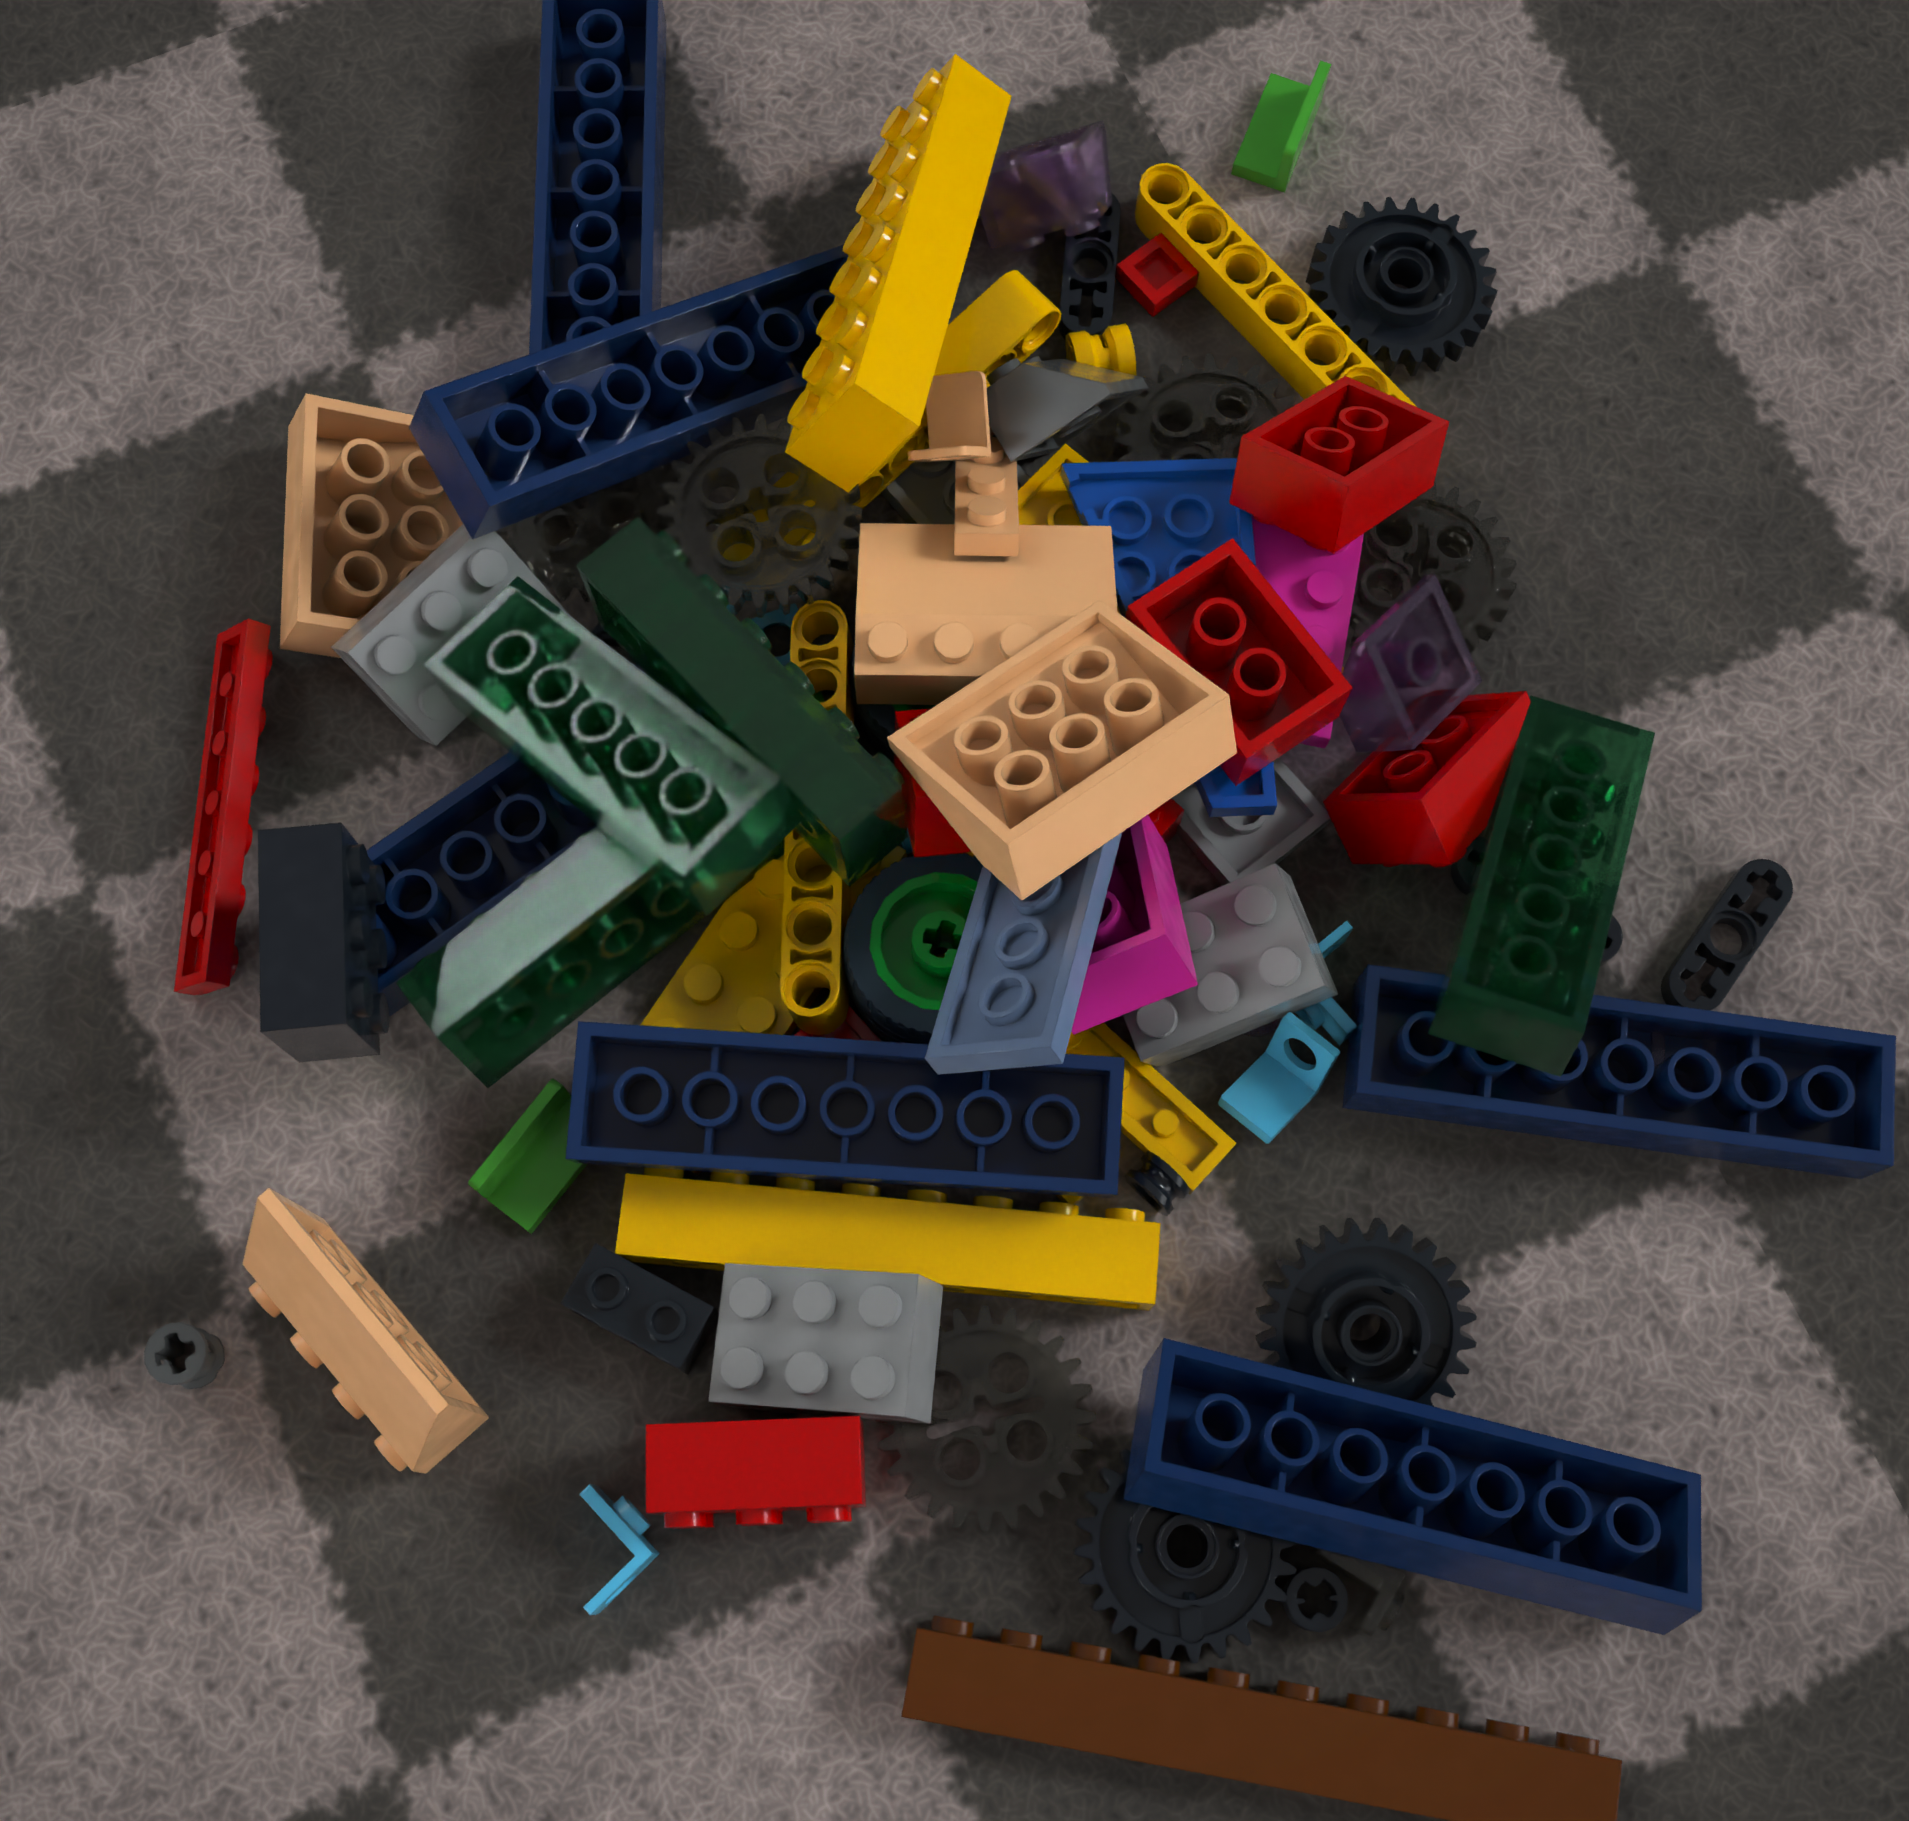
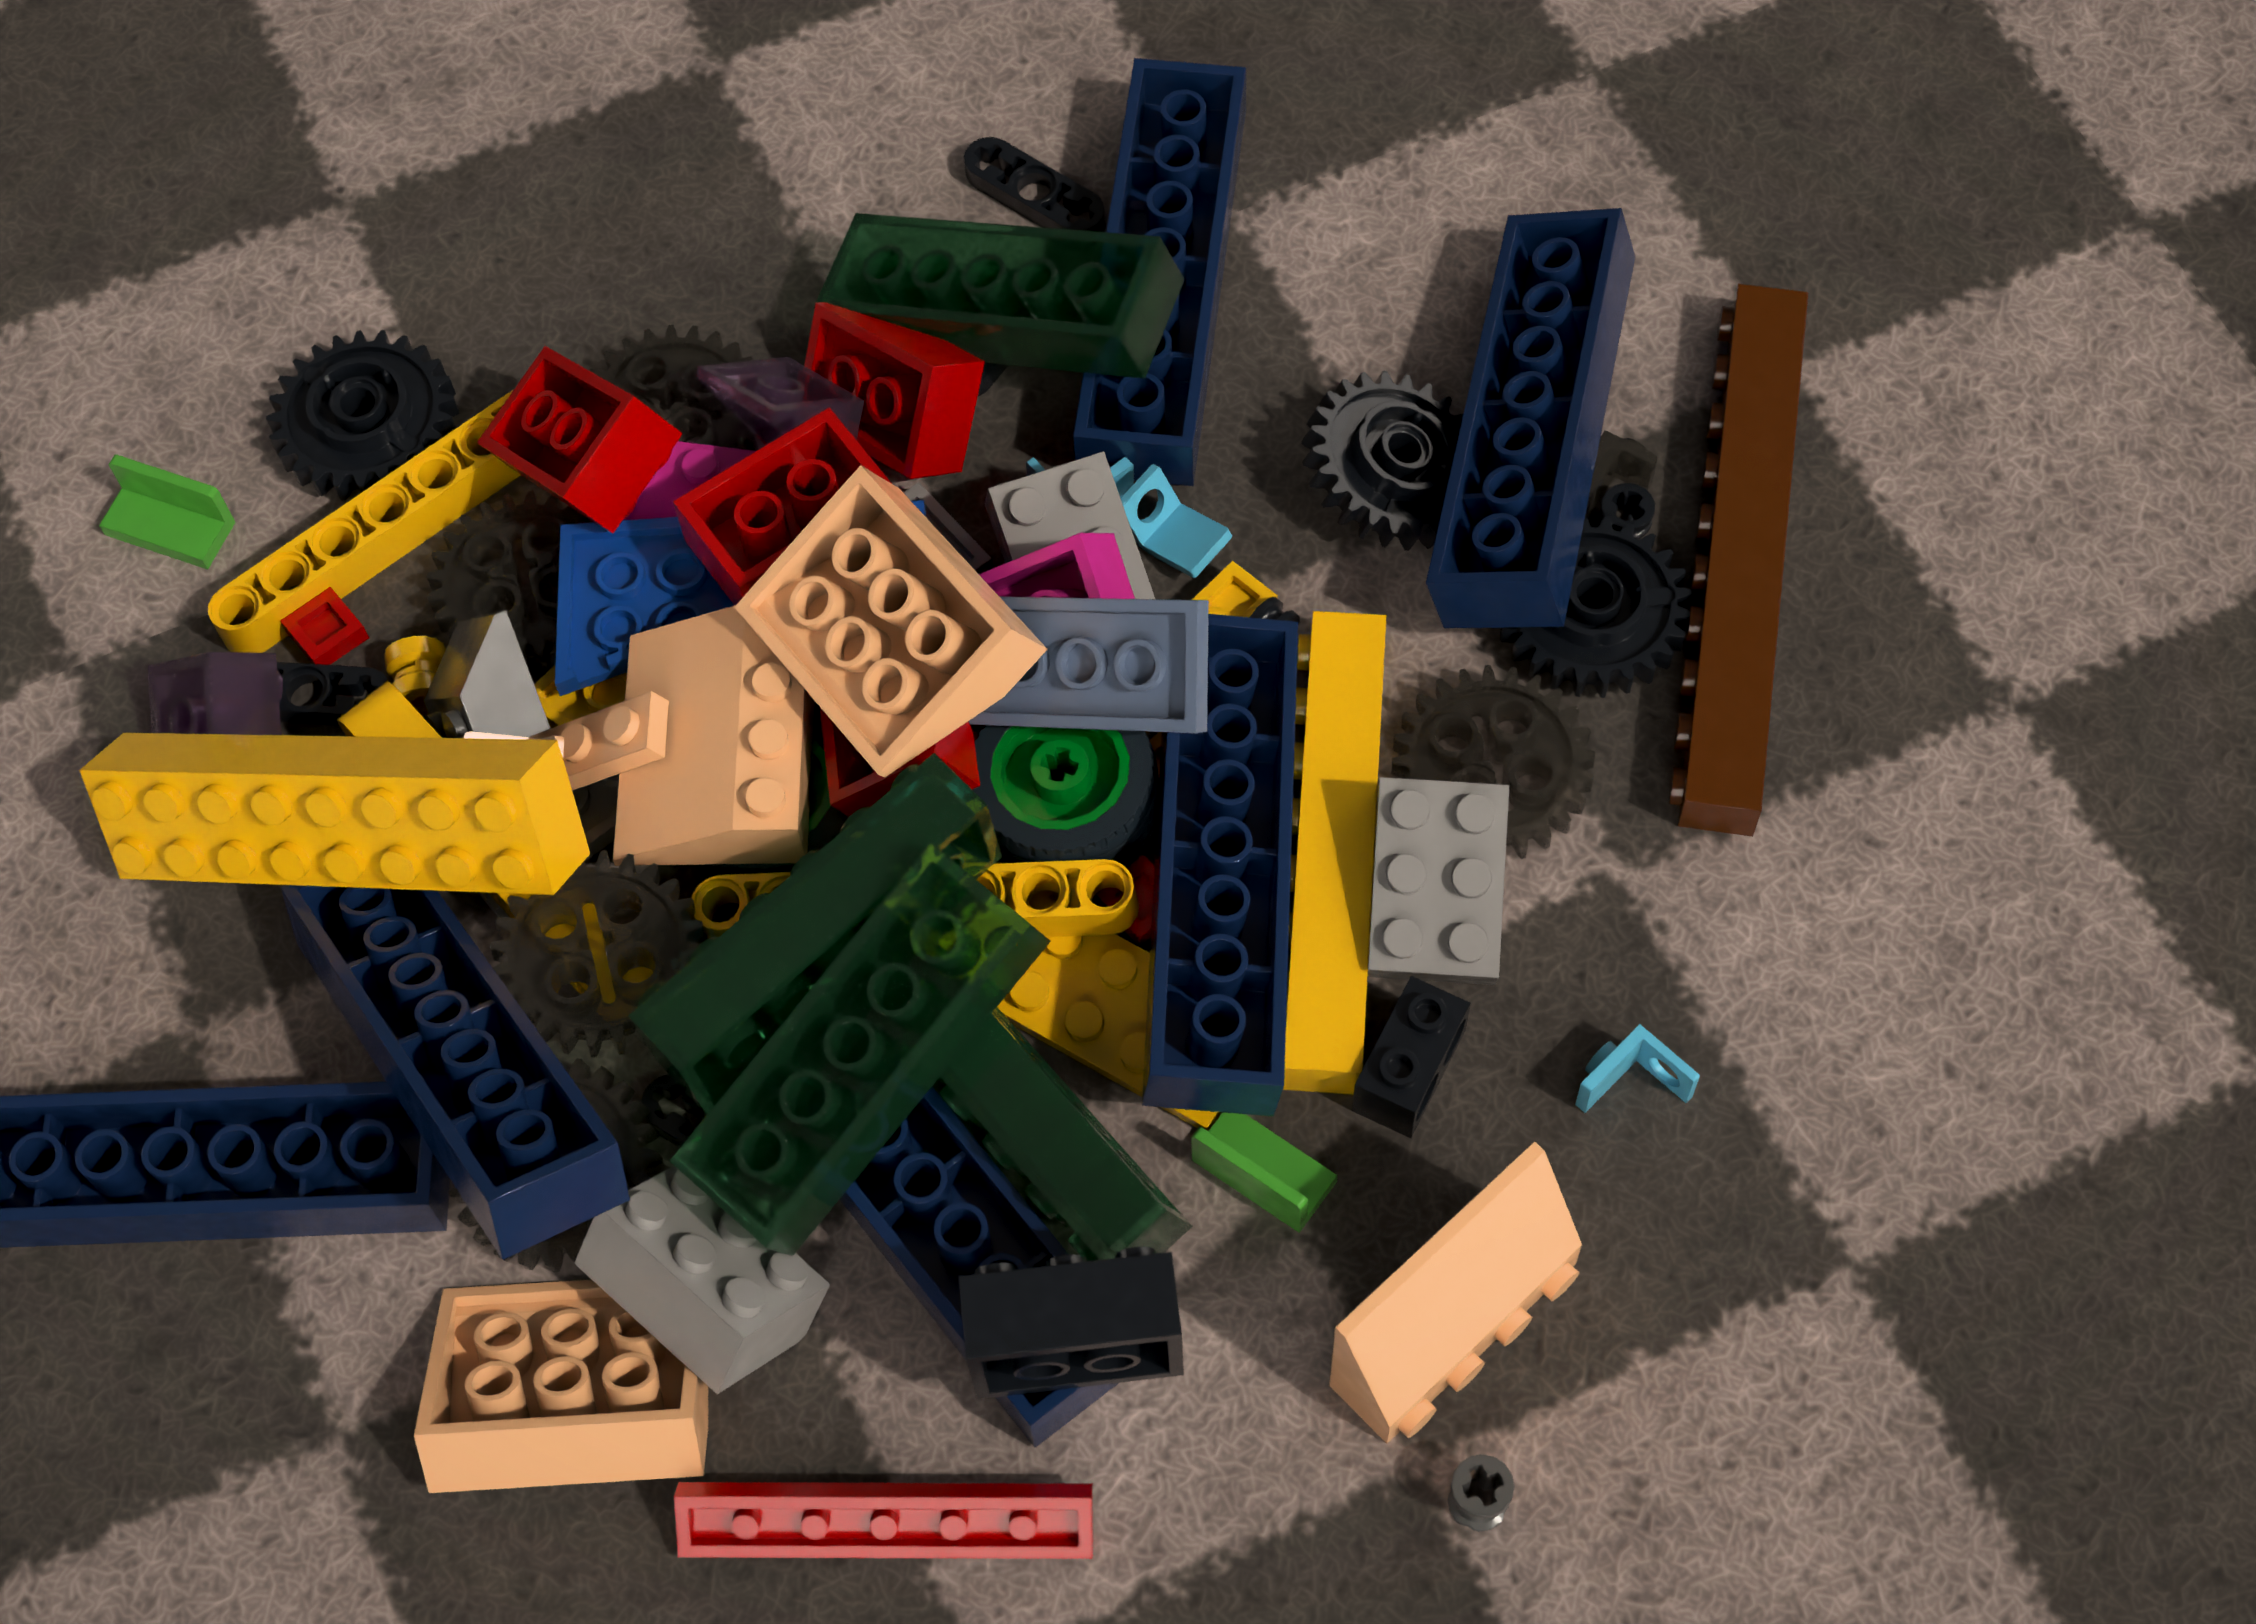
camera: 85 degrees left, 10 degrees down
(755, 1470) = (1558, 935): red brick -> none

